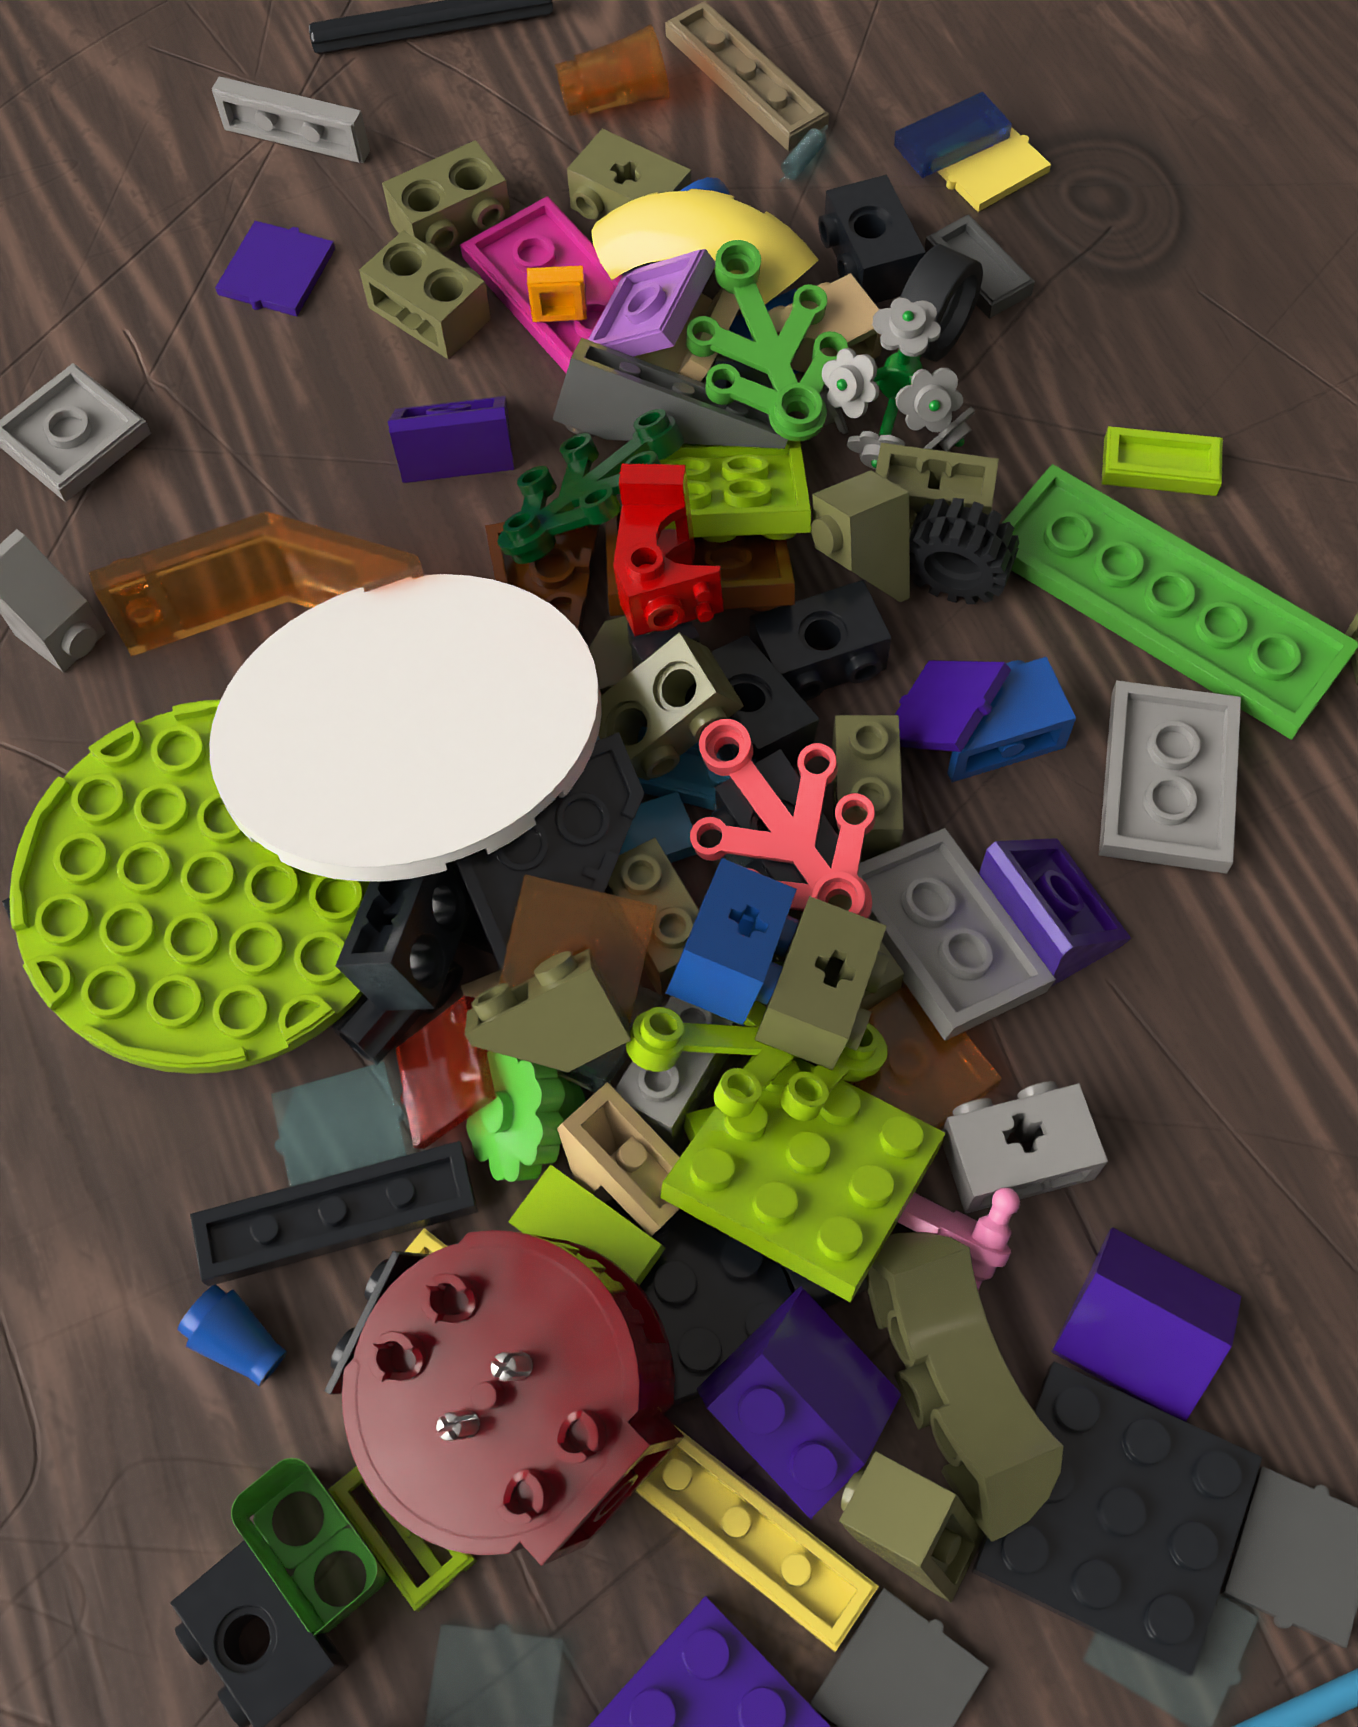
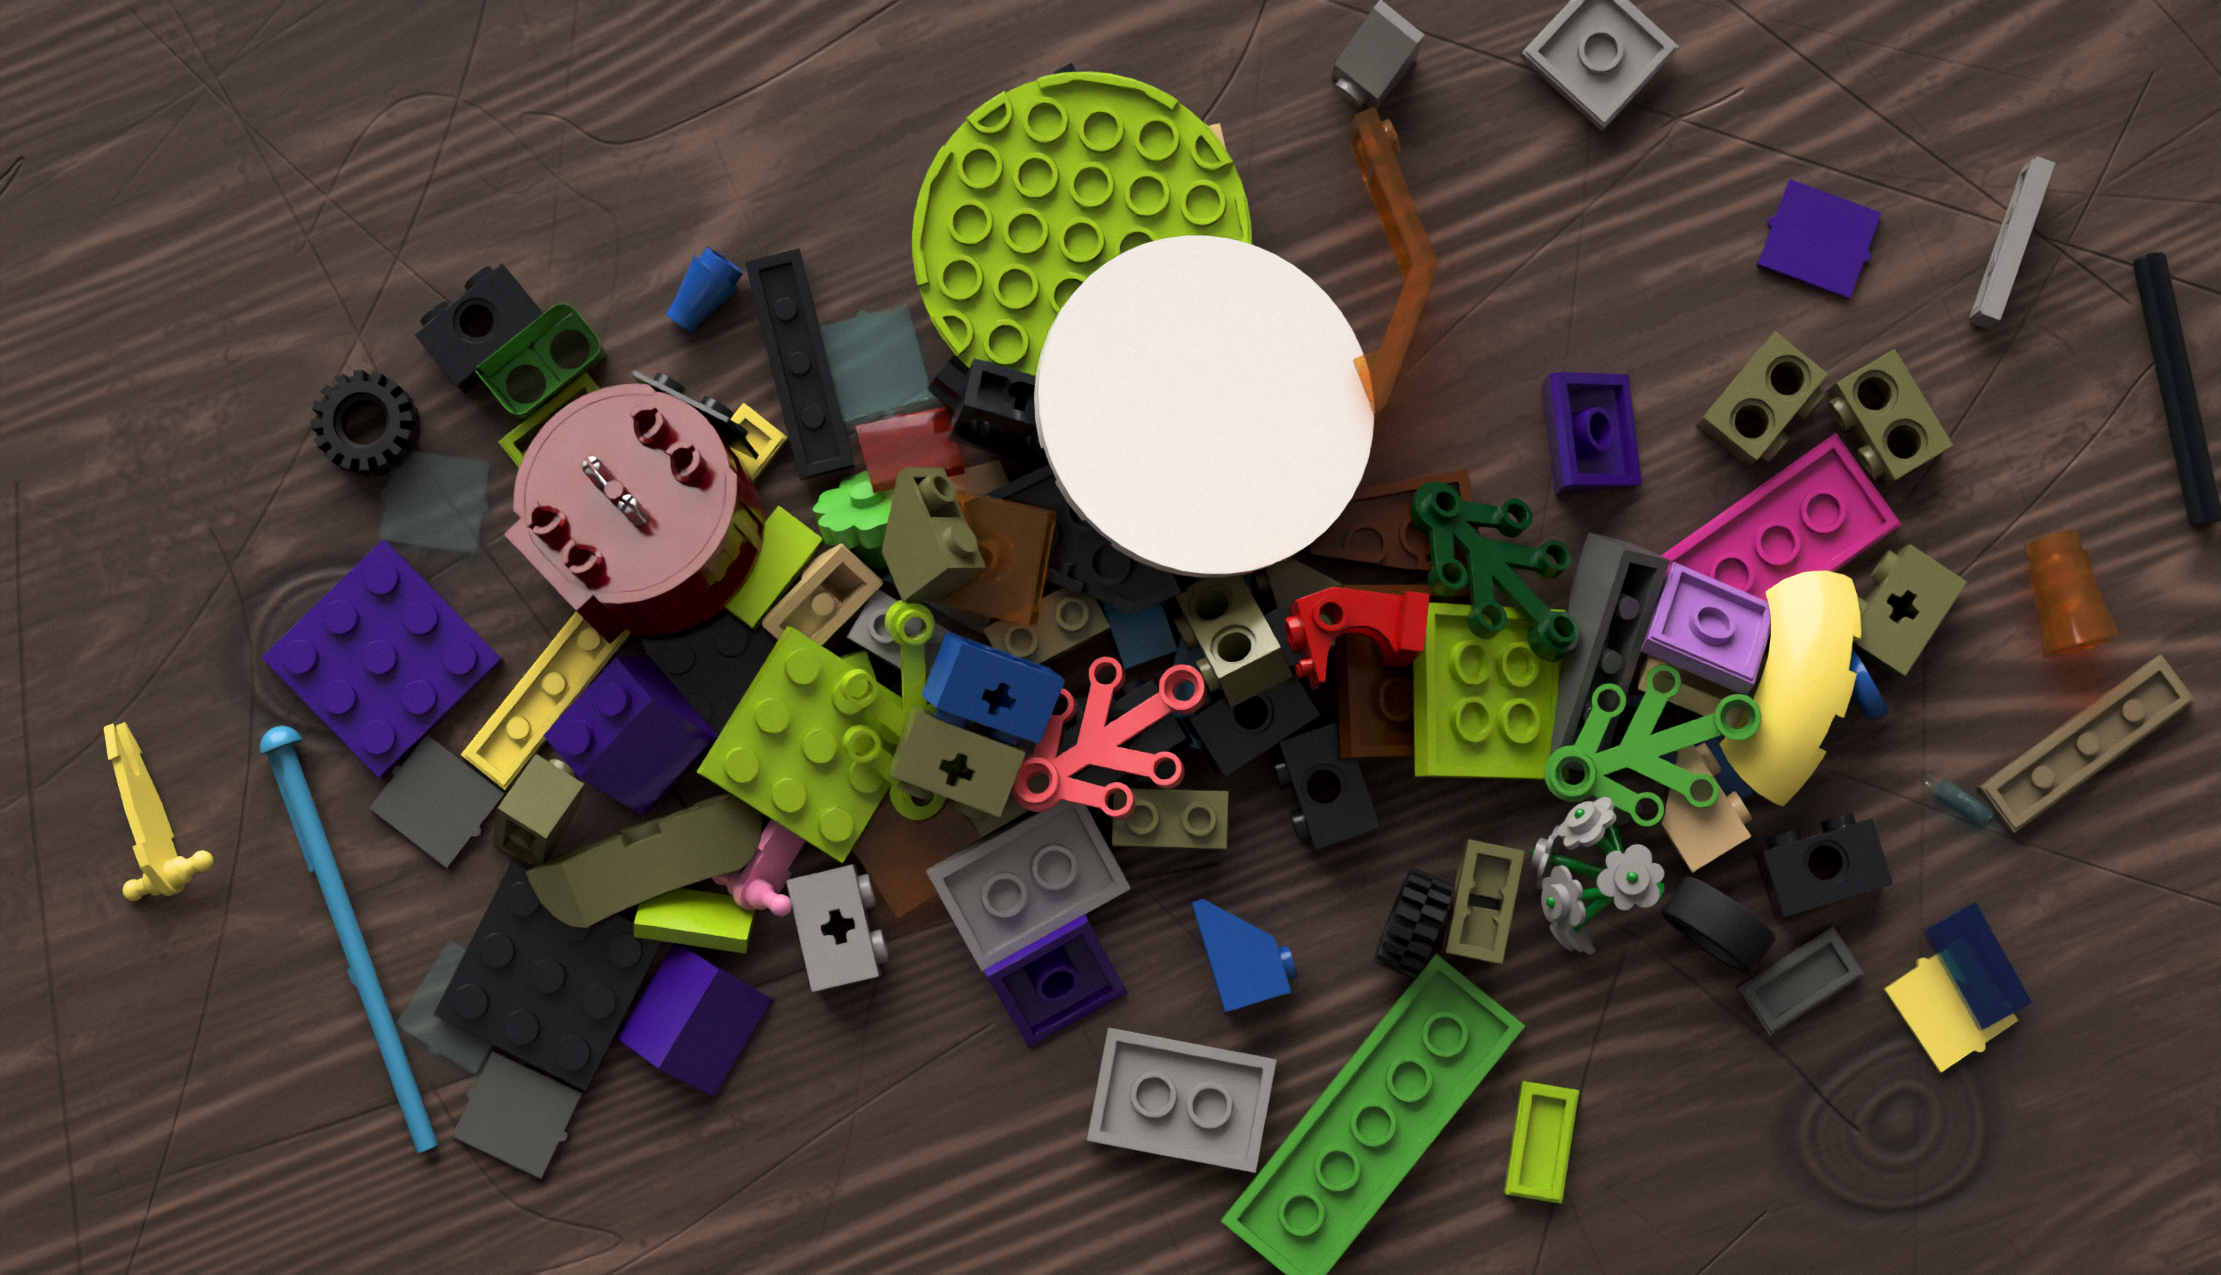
camera: 90 degrees right, 20 degrees up
(557, 293) = (1740, 535): light orange tile -> none
(866, 530) = (1418, 826): olive slope -> none
(948, 703) = (1250, 896): dark purple piece -> none
(1029, 1316) = (695, 920): none -> lime tile

